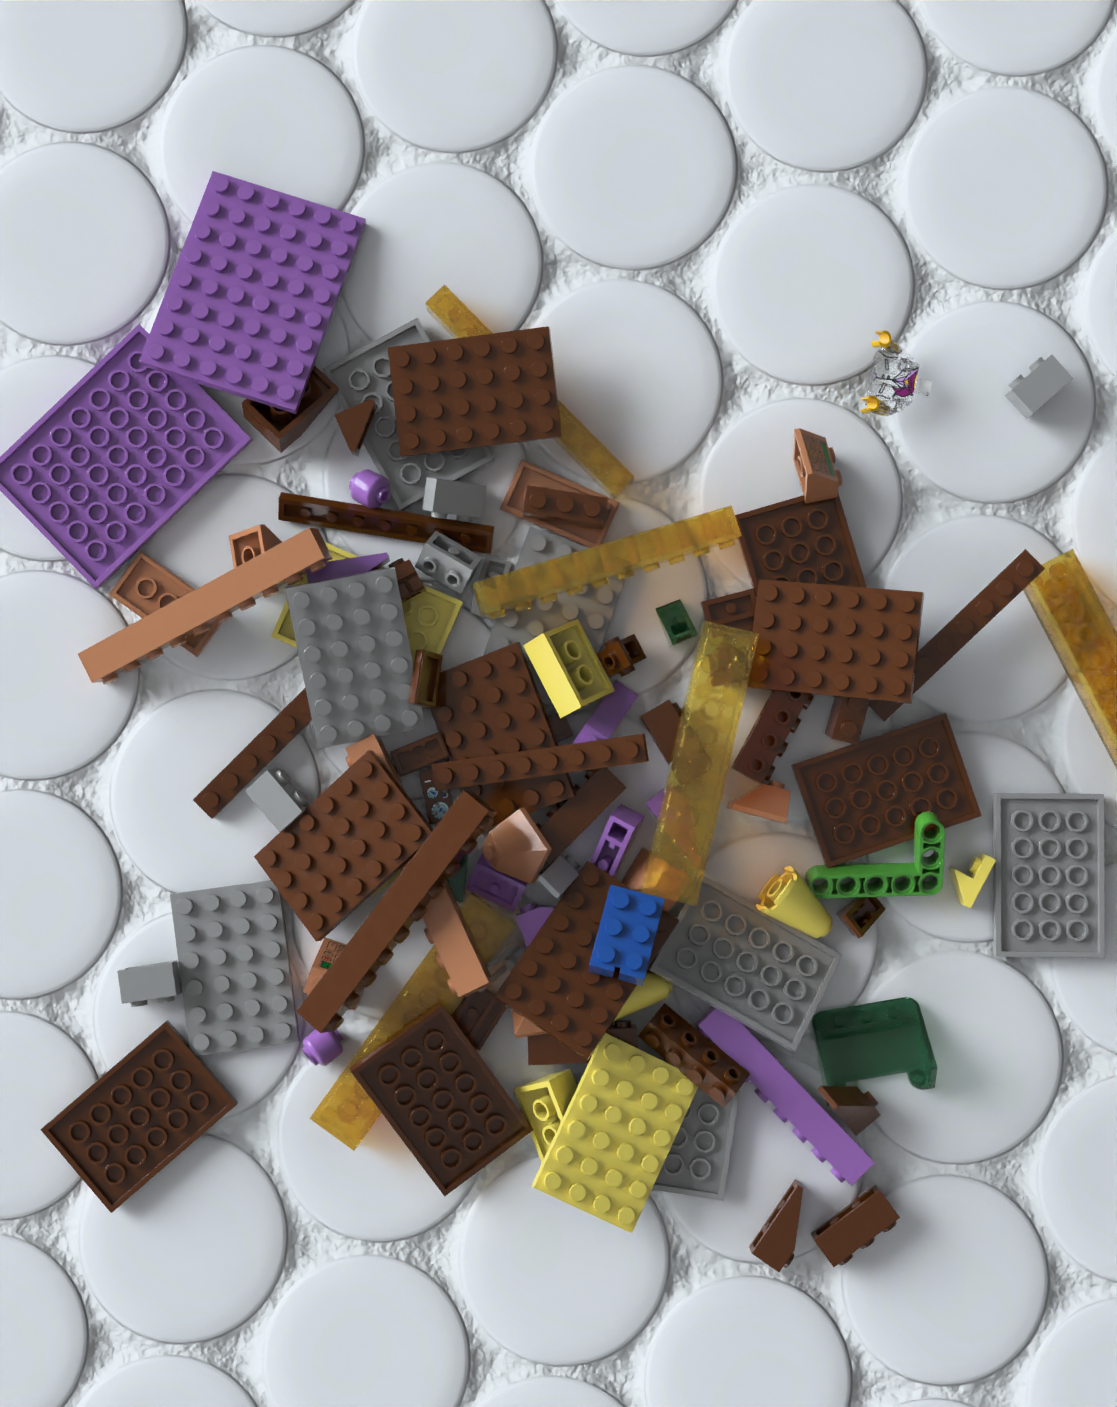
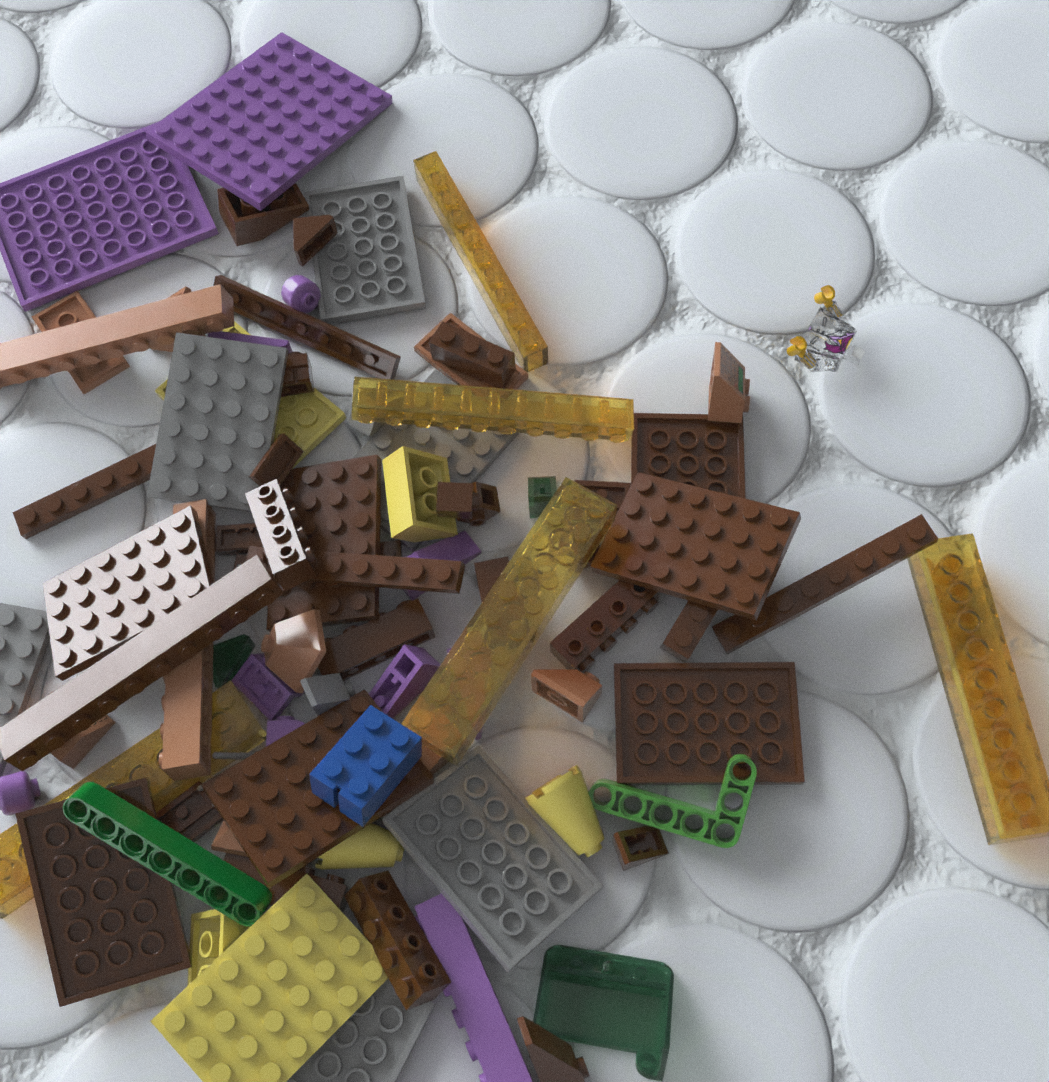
camera: 25 degrees right, 20 degrees down
(278, 798) = (88, 530): light grey brick -> none
(448, 562) = (338, 368): light grey brick -> none
(454, 498) = (372, 320): light grey brick -> none
(463, 750) = (280, 534): none -> brick
(475, 391) = (427, 237): reddish brown plate -> none
(488, 1058) = (167, 853): none -> green beam
(610, 668) = (456, 500): none -> reddish brown brick
(969, 886) = (767, 853): light yellow slope -> none
(1039, 386) = (972, 383): light grey brick -> none
(1048, 875) = (865, 877): light grey plate -> none

